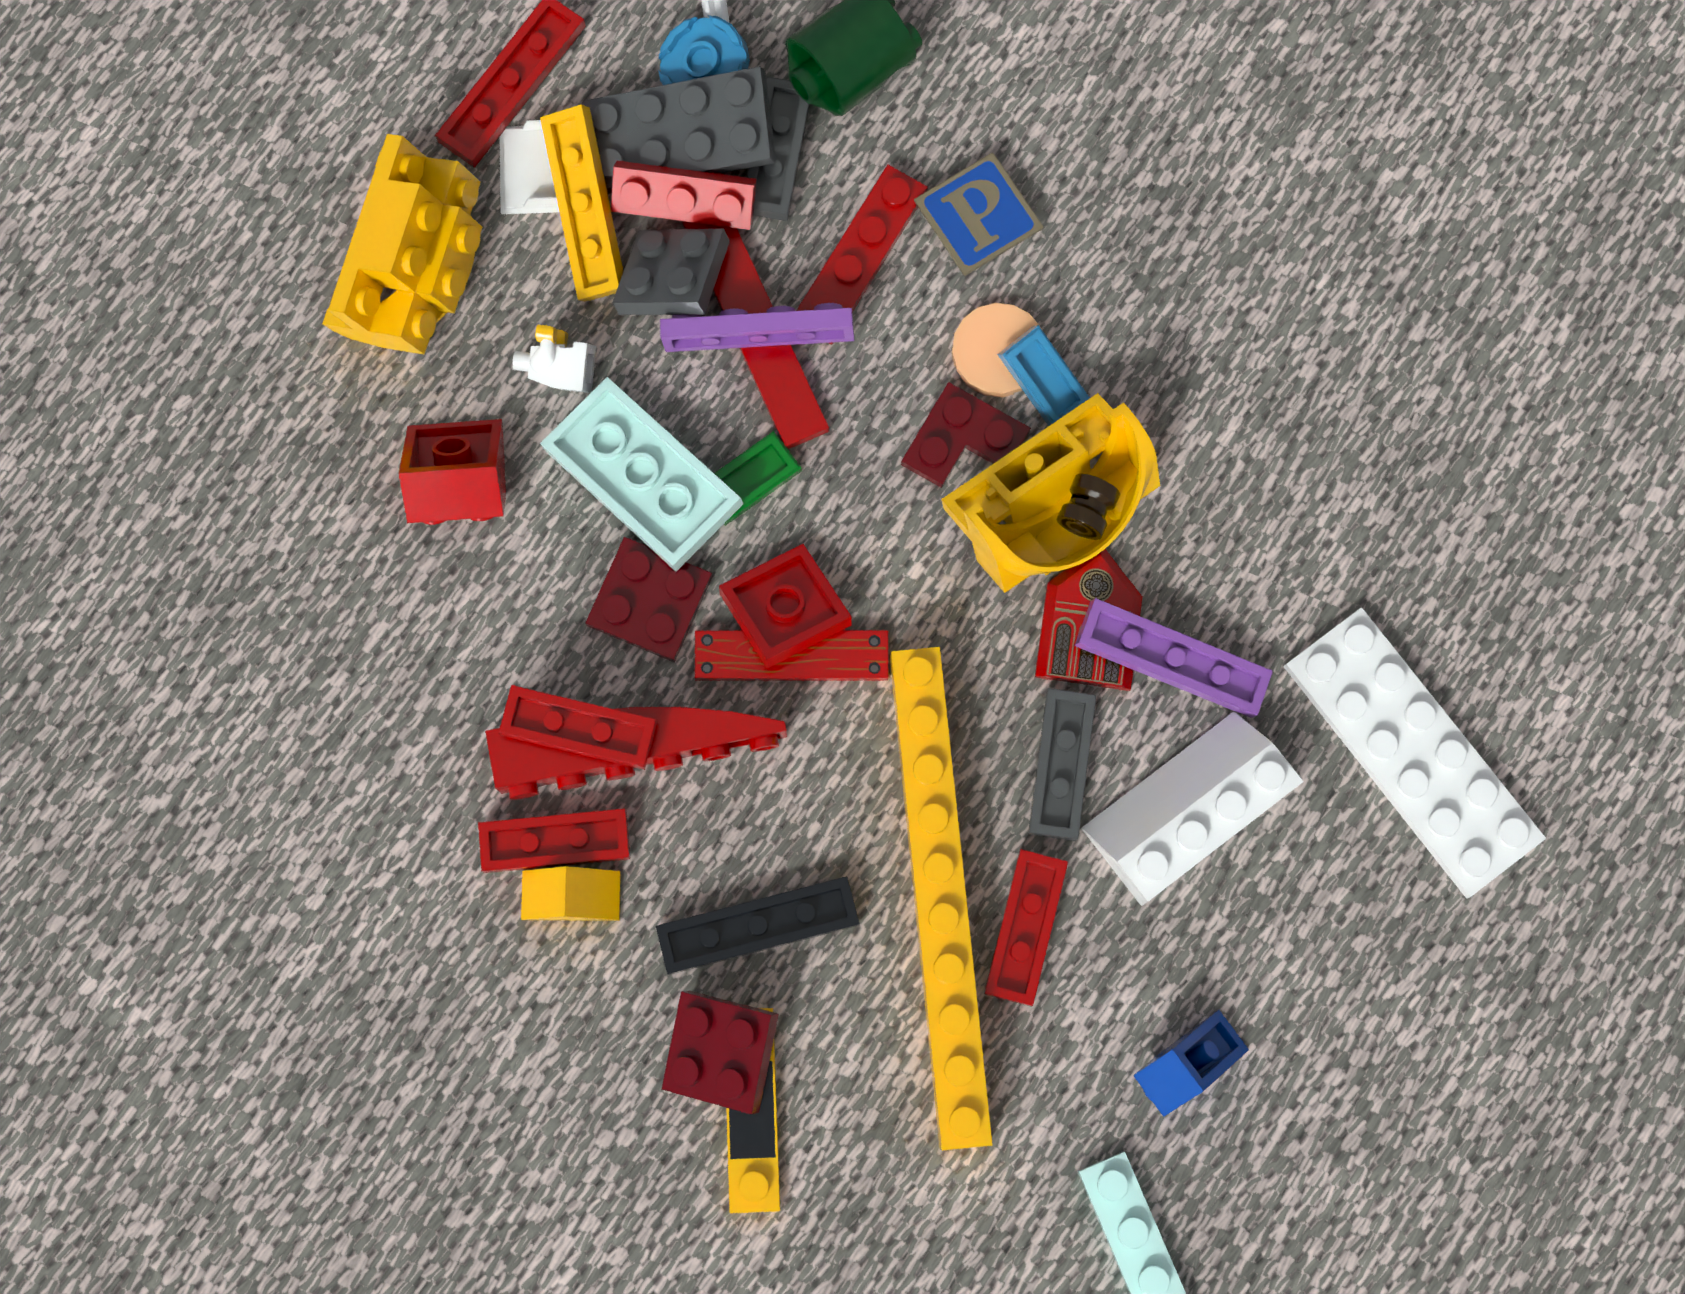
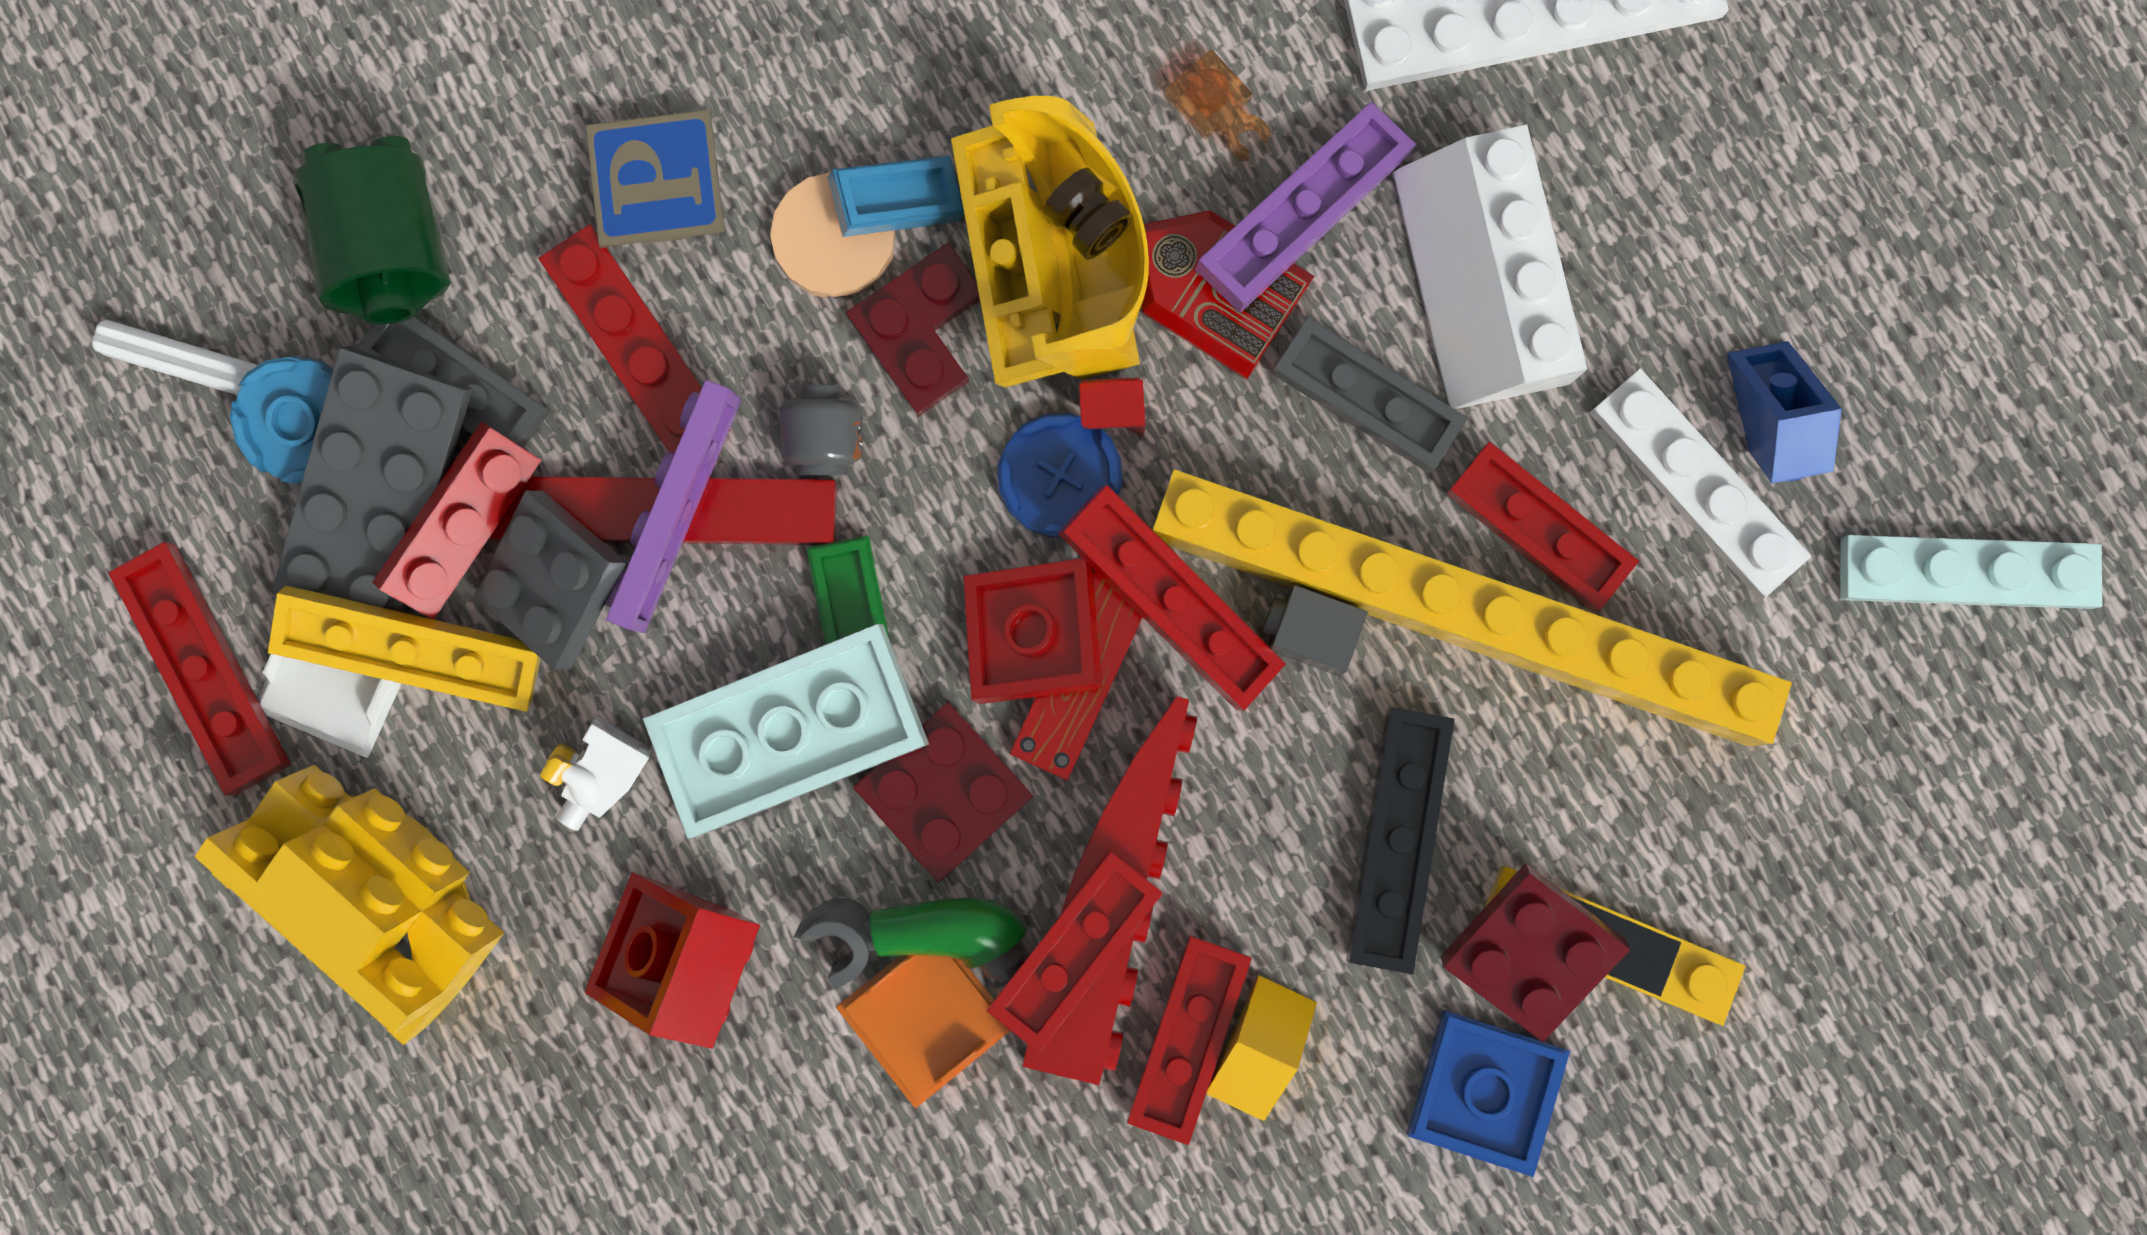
camera: 65 degrees left, 5 degrees up
(489, 655) = (923, 1021): none -> orange piece
(559, 647) = (959, 928): none -> green piece
(609, 1067) = (1488, 1093): none -> blue tile
(851, 689) = (1171, 598): none -> red plate
(857, 403) = (821, 431): none -> dark grey head
(876, 798) = (1314, 629): none -> dark grey brick
(904, 578) = (1054, 470): none -> blue tile
(968, 589) = (1113, 404): none -> red slope
(1112, 1029) = (1700, 484): none -> white plate
(1222, 563) = (1214, 99): none -> clear orange plate

